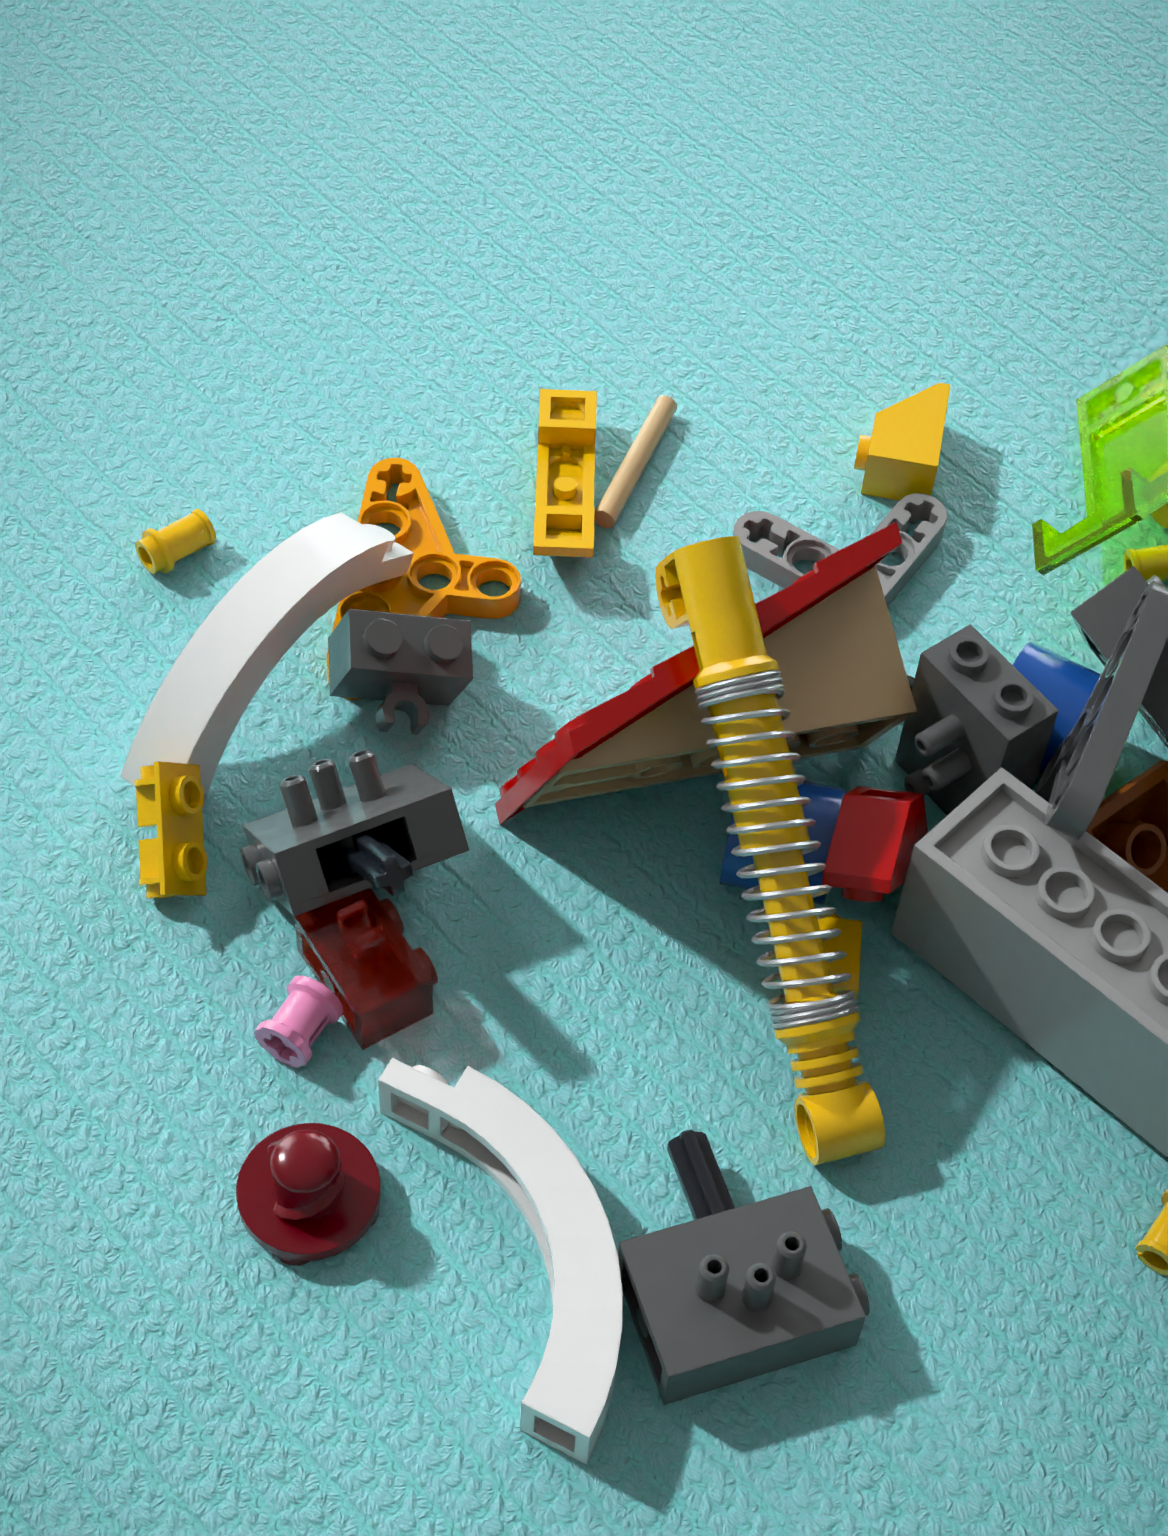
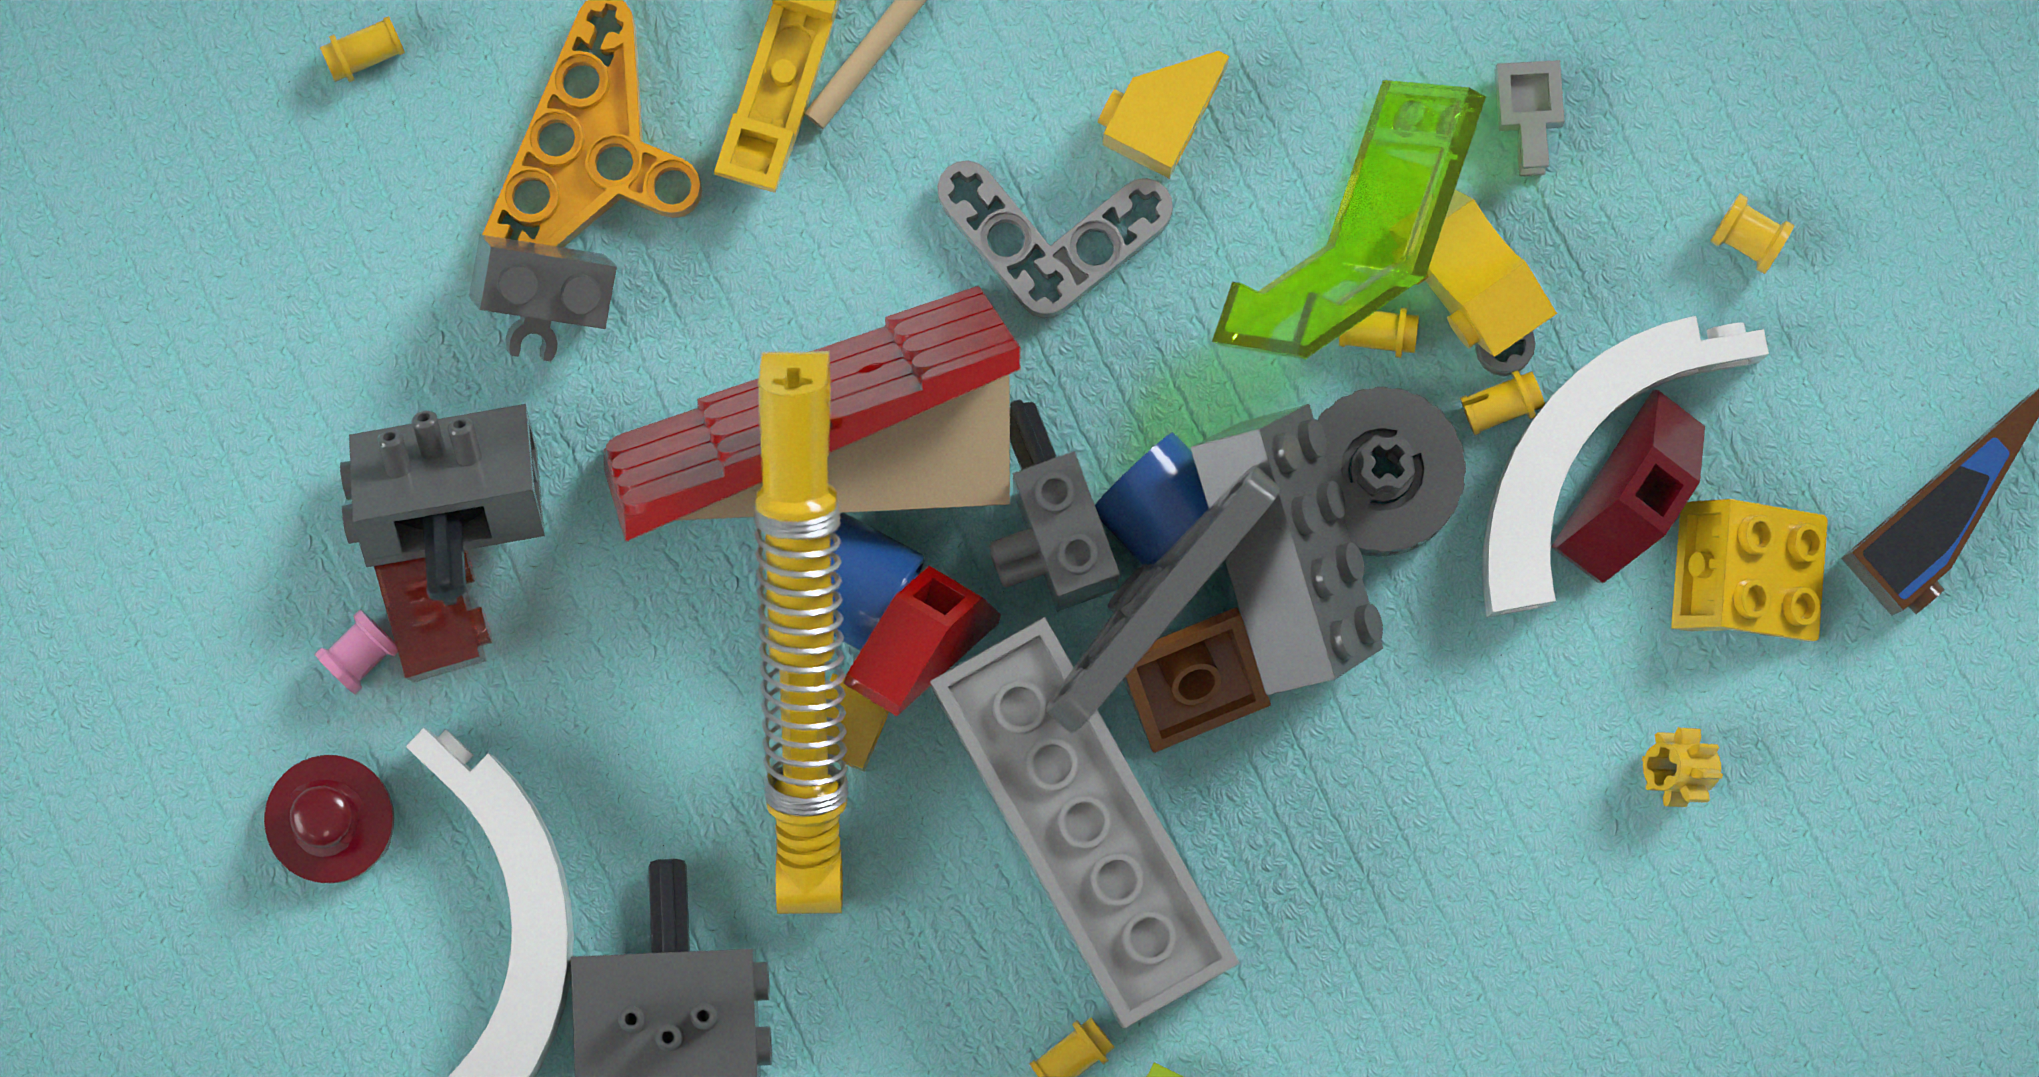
camera: 20 degrees right, 30 degrees up
(173, 801) = (282, 440): yellow hinge -> none
(251, 633) = (408, 232): white arch -> none

